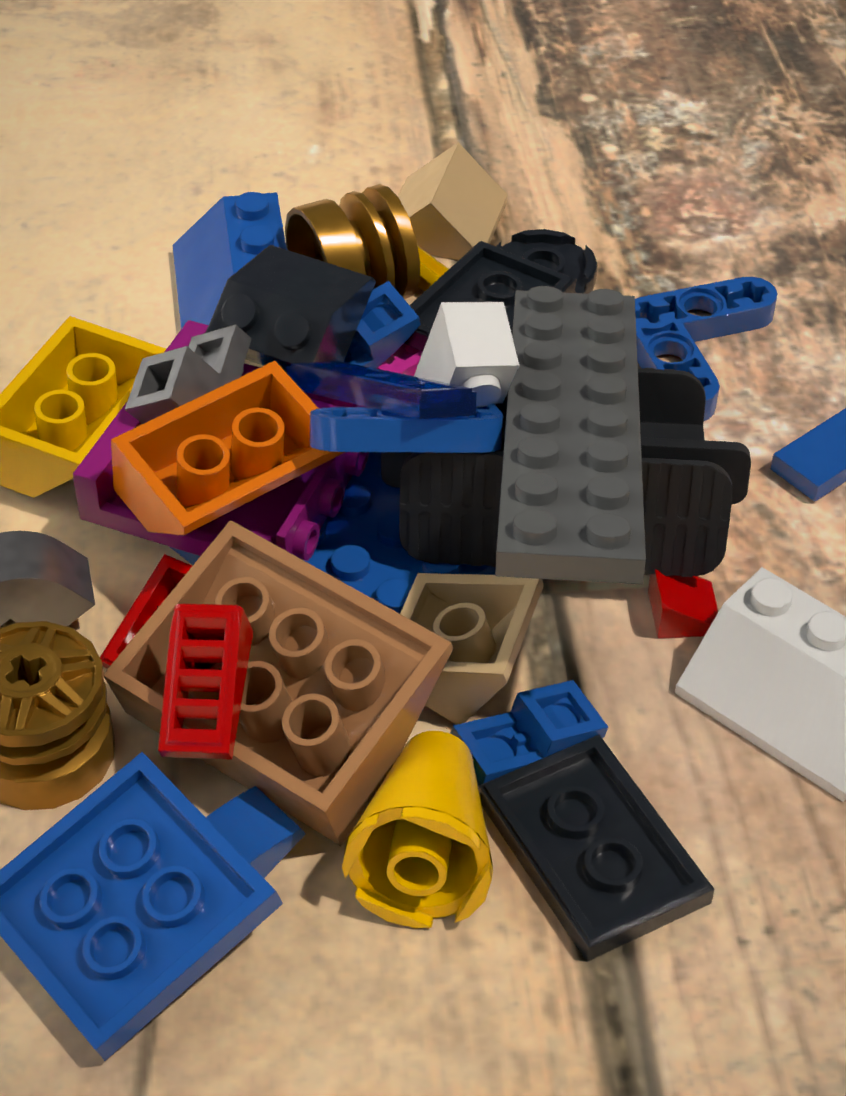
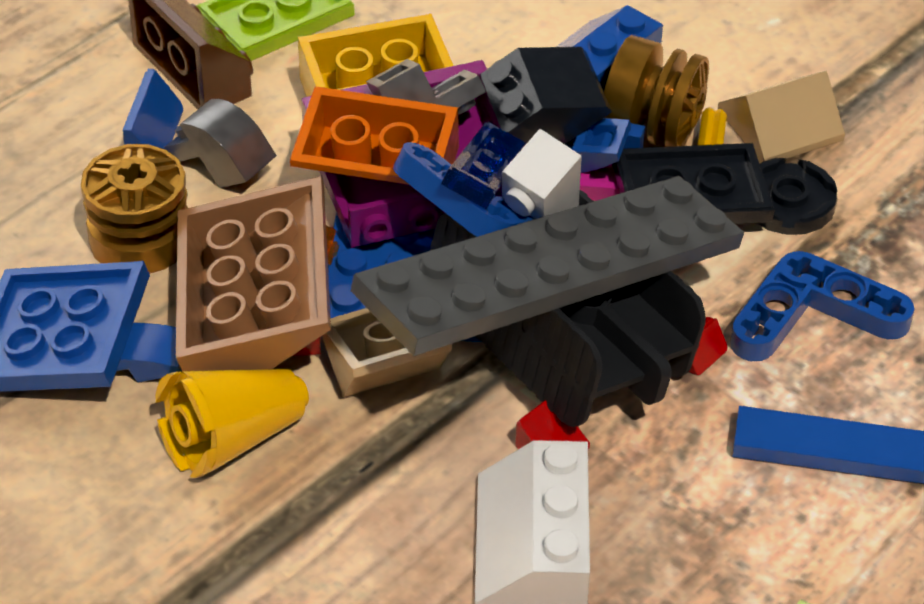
camera: 50 degrees right, 0 degrees up
(206, 636) = (213, 234): red slope -> none
(536, 727) = (359, 431): blue slope -> none
(595, 847) = (309, 507): black tile -> none

